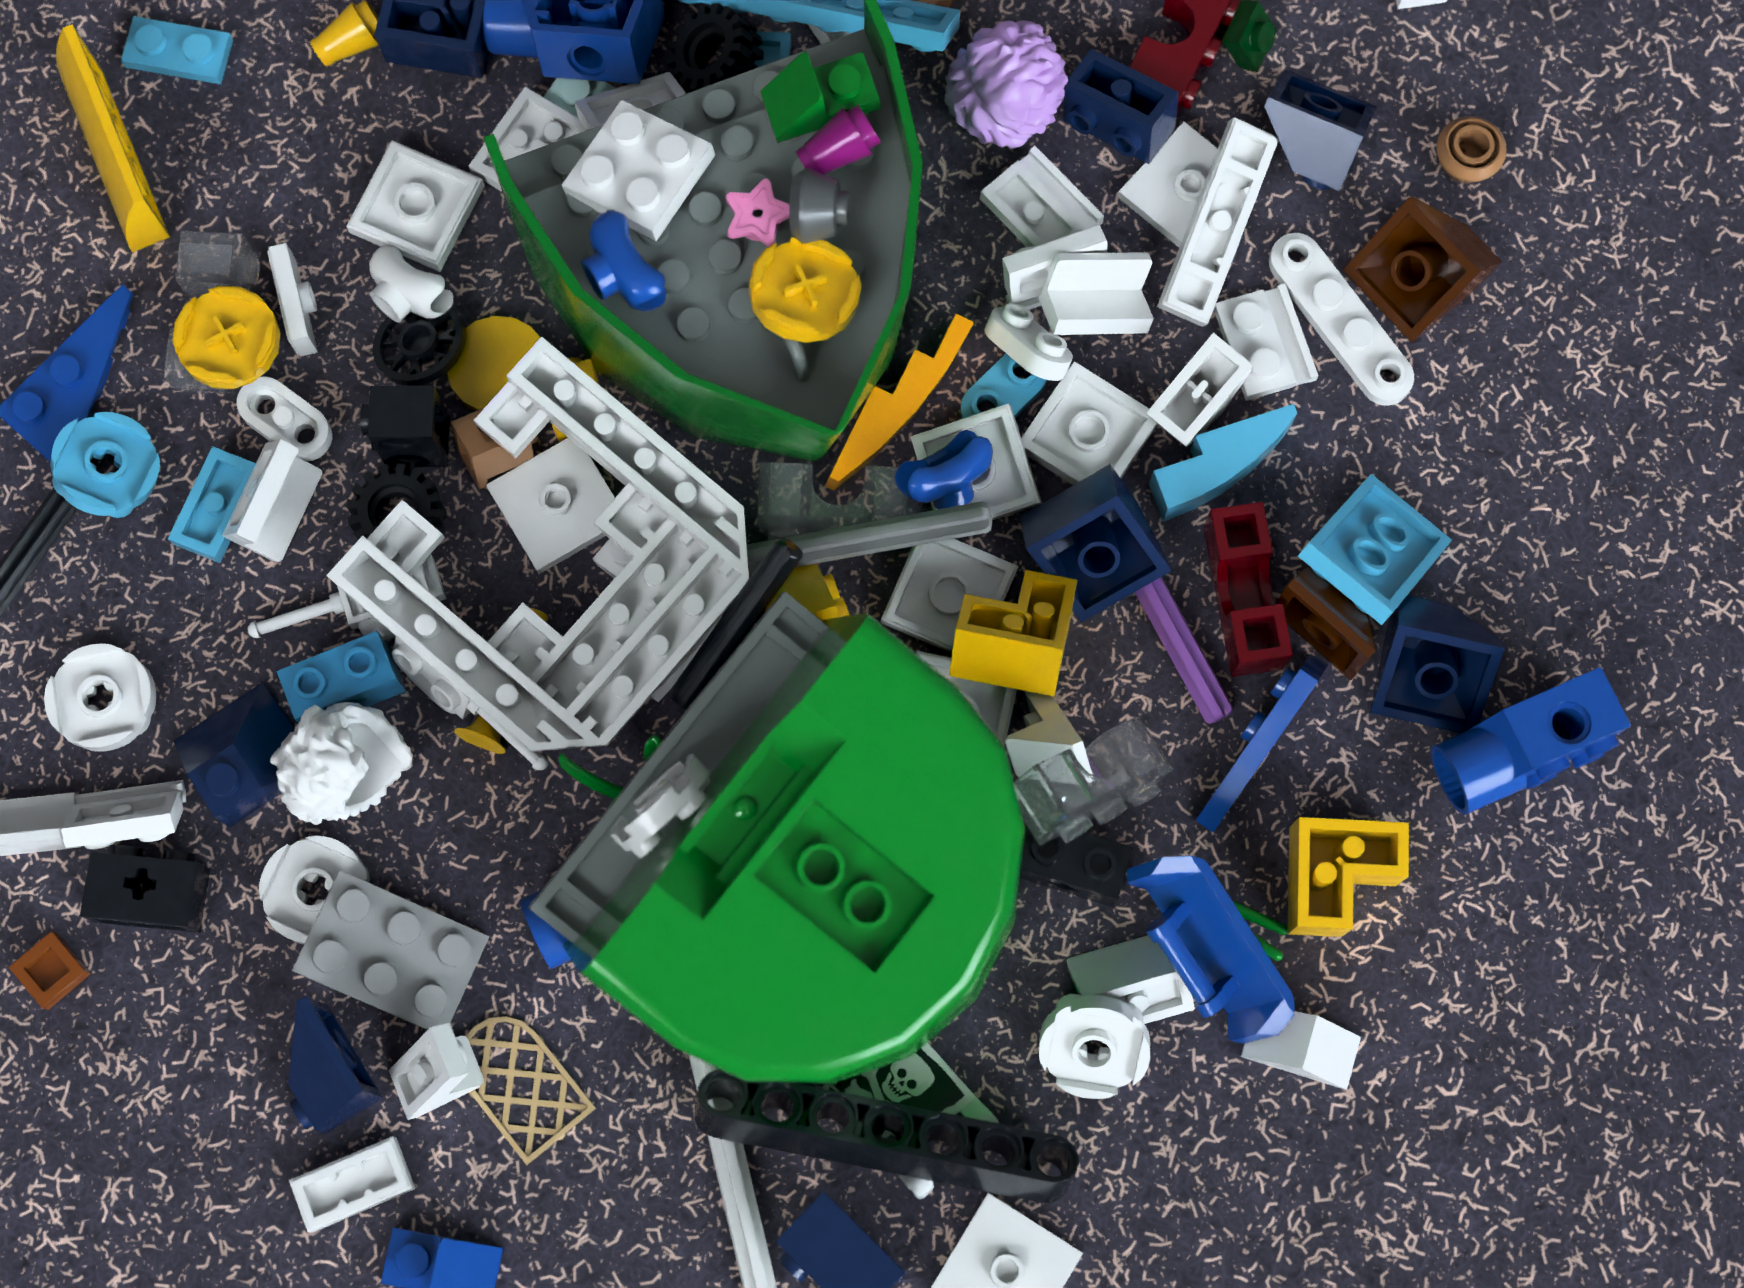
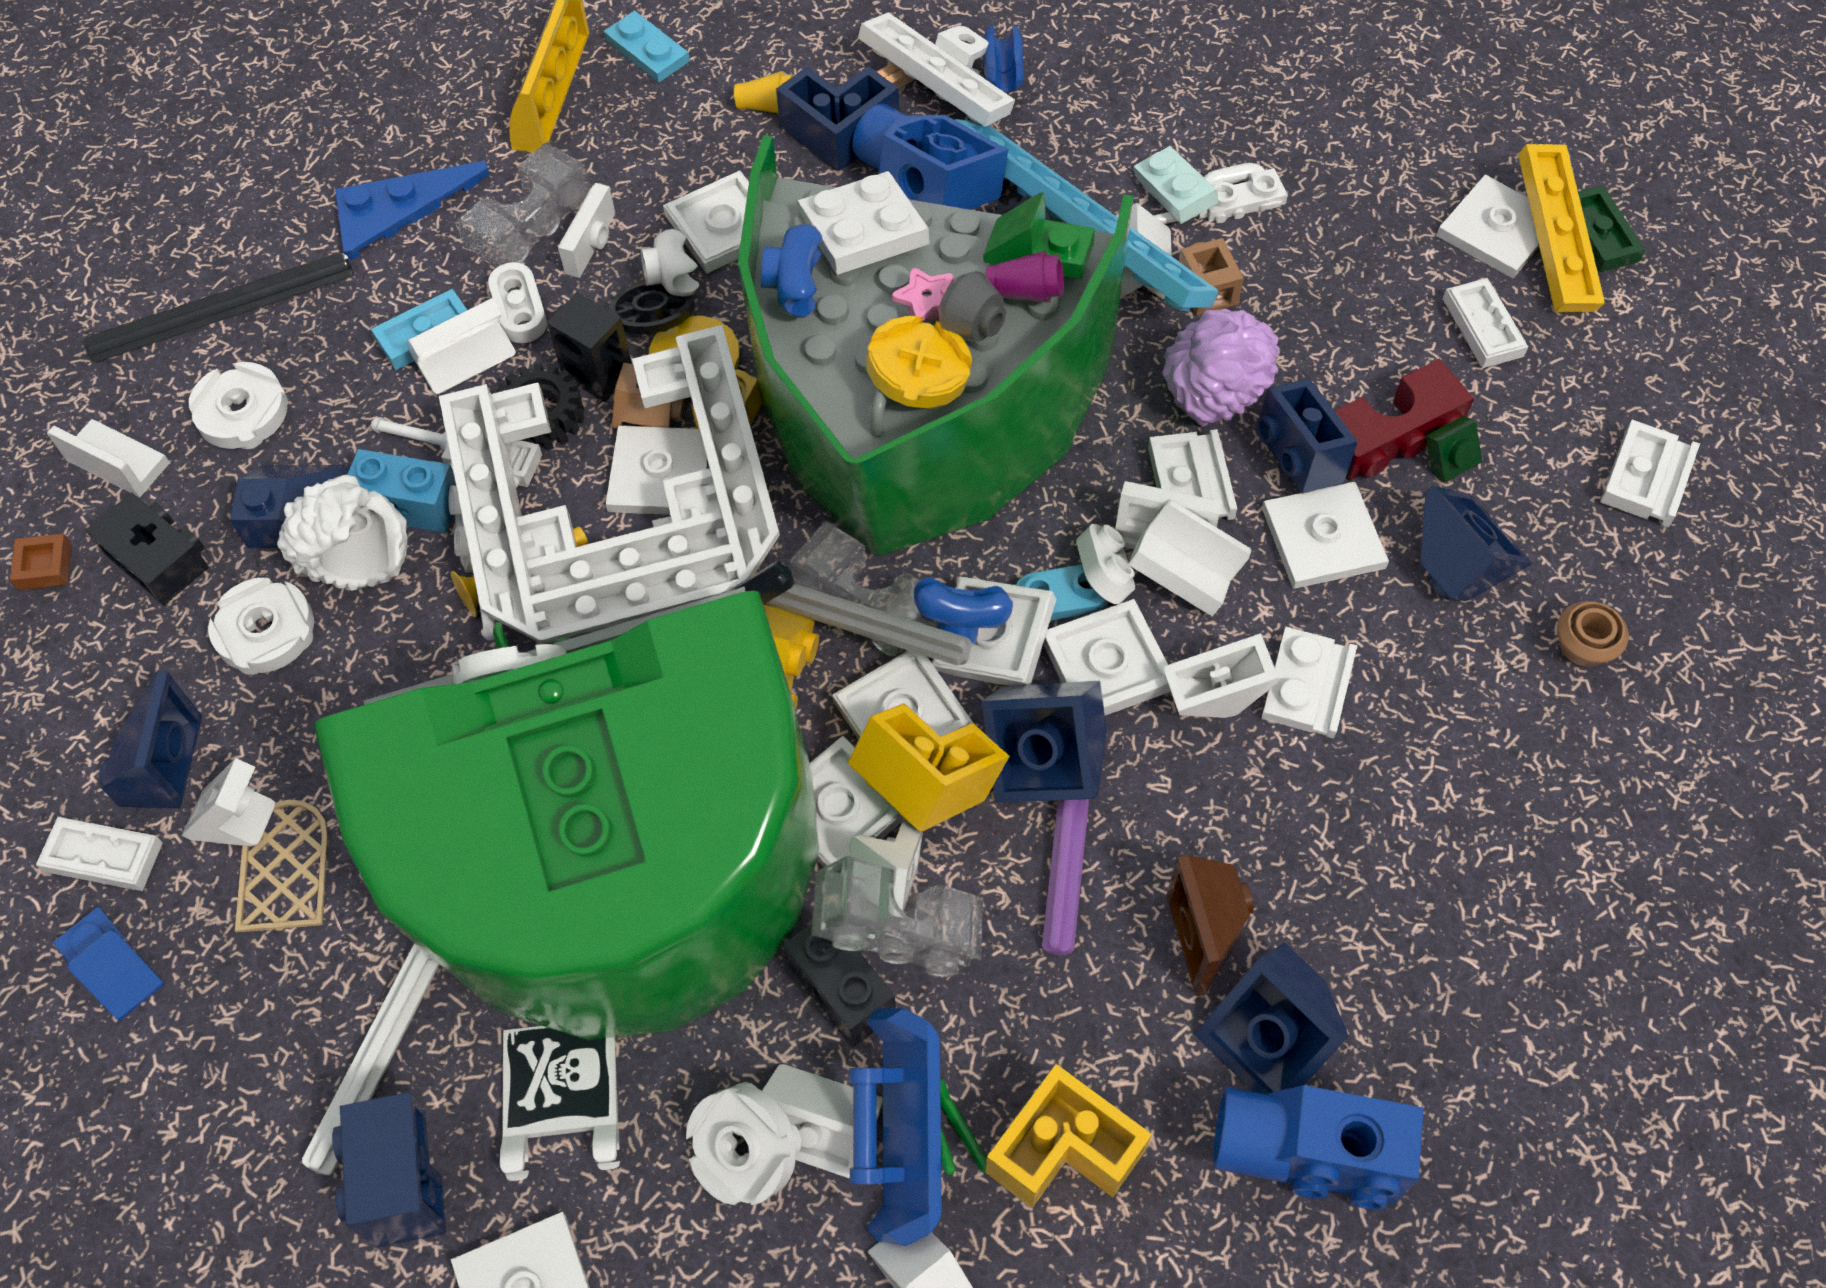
camera: 35 degrees right, 15 degrees down
(112, 492) = (367, 280): medium azure plate -> none
(124, 814) = (186, 489): white plate -> none
(226, 337) = (516, 219): yellow tile -> none
(390, 952) = (265, 698): light grey plate -> none
(889, 413) = (953, 552): light orange slope -> none
(909, 1124) = (518, 1119): black beam -> none
(1218, 222) = (1329, 565): white plate -> none
(1218, 461) = (1205, 746): medium azure slope -> none
(1239, 563) = (1147, 864): dark red arch -> none
(1261, 736) = (1084, 984): blue wing -> none
(1341, 319) = (1388, 704): white plate -> none
(1375, 549) = (1285, 889): medium azure plate -> none
(1420, 266) = (1487, 698): reddish brown slope -> none

